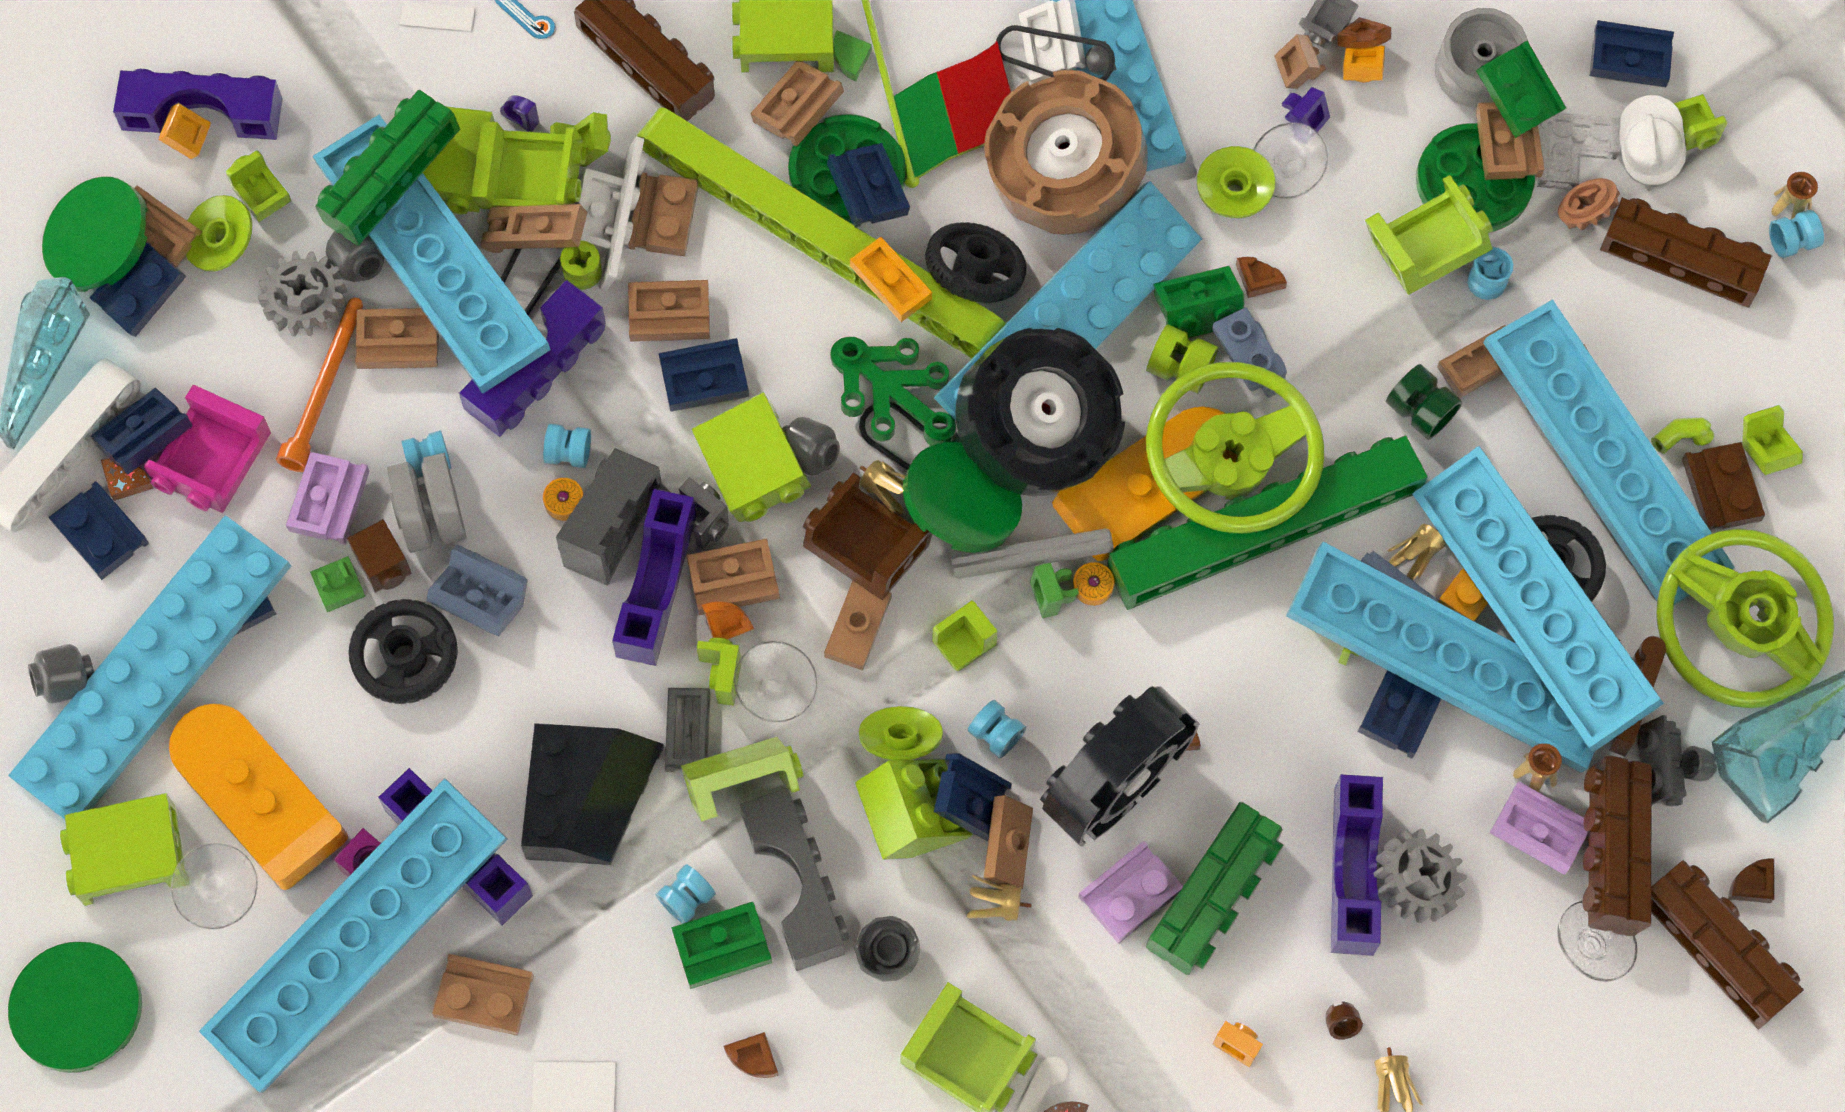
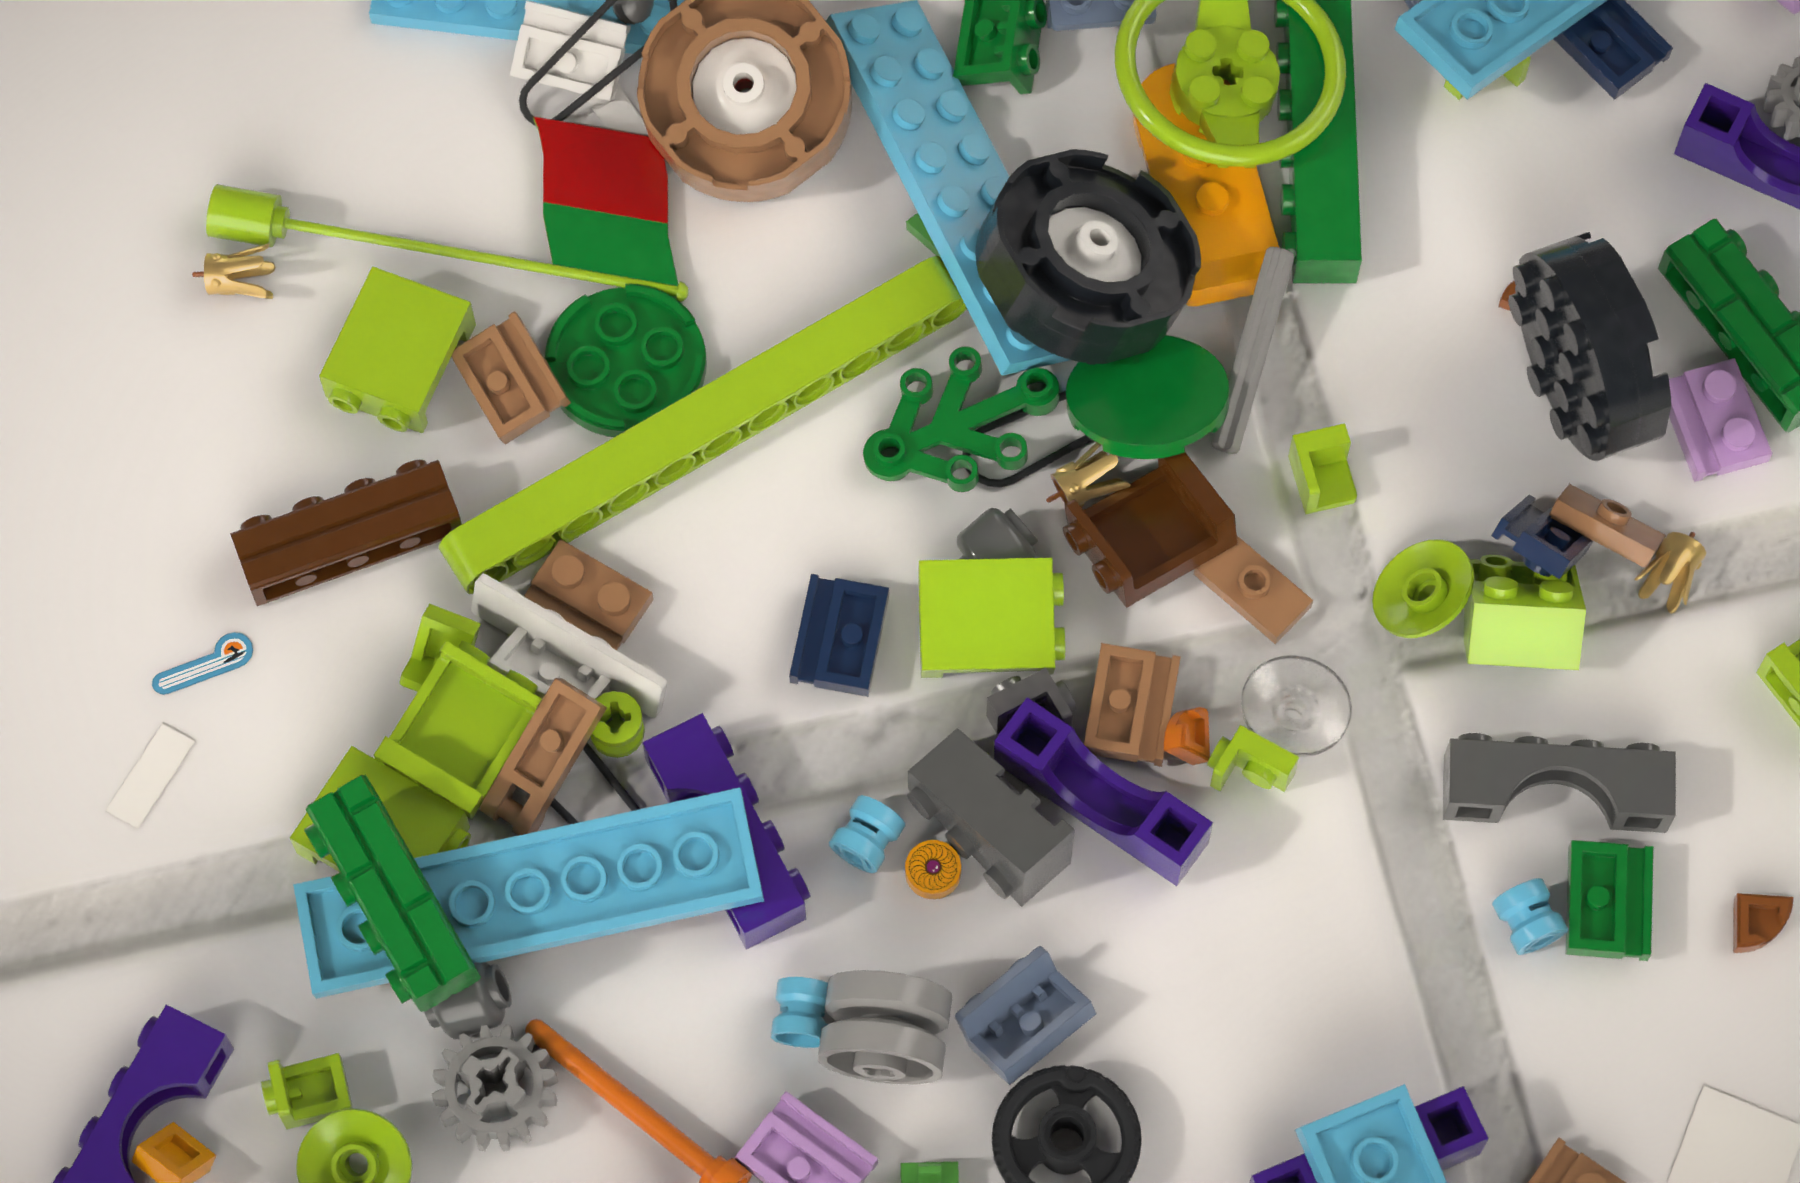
camera: 65 degrees left, 0 degrees up
(379, 556) = (923, 1121): reddish brown brick -> none
(395, 339) = (615, 992): medium nougat plate -> none
(521, 112) = (353, 718): dark purple tile -> none
(583, 791) = (1345, 992): black wedge -> none
(669, 310) = (730, 642): medium nougat plate -> none
(689, 695) = (1300, 856): dark grey tile -> none
(738, 767) = (1407, 789): lime panel -> none
(851, 54) = (472, 286): bright green tile -> none
(868, 185) = (677, 335): dark blue plate -> none
(887, 948) = (1692, 709): dark grey hair -> none
(891, 279) = (829, 354): light orange plate -> none
(977, 259) = (836, 257): black wheel -> none
(997, 728) = (1459, 480): medium azure wheel -> none
(1048, 591) = (1305, 352): bright green tile -> none
(1094, 583) = (1311, 303): light orange tile -> none
(1174, 342) = (1064, 88): lime wheel -> none

